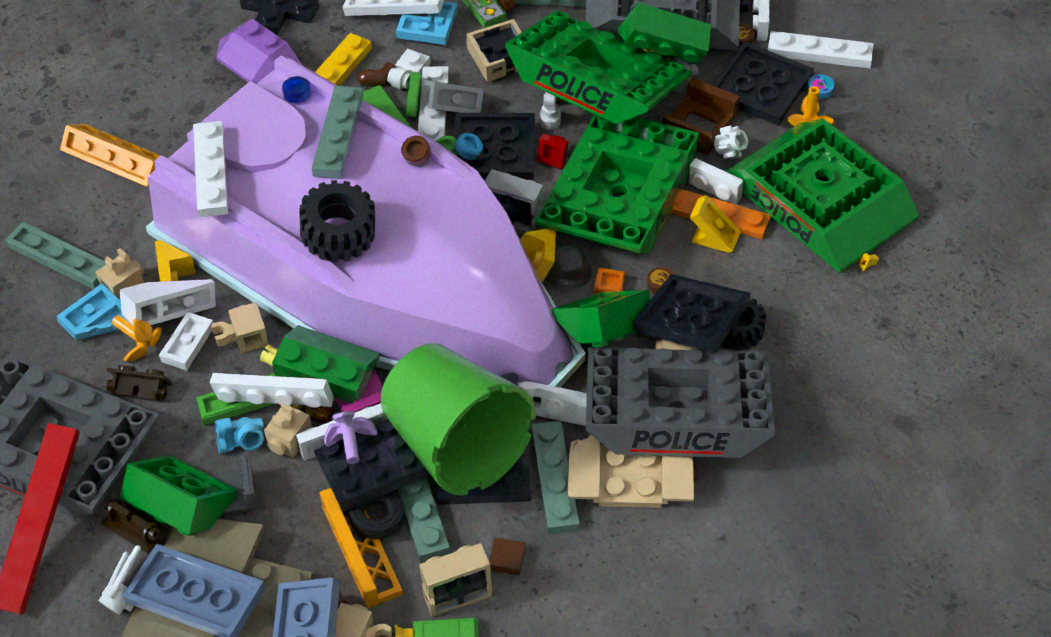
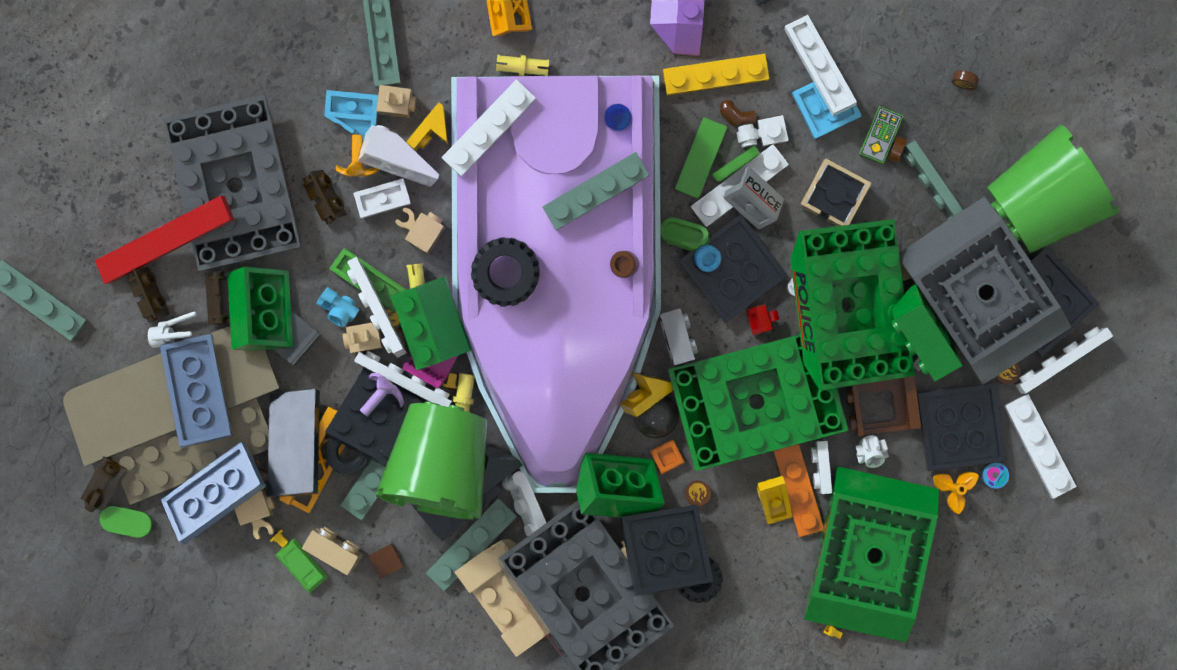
camera: 50 degrees right, 35 degrees up
(53, 582) = (144, 283): none -> dark brown hinge
(325, 543) = (293, 443): none -> tile

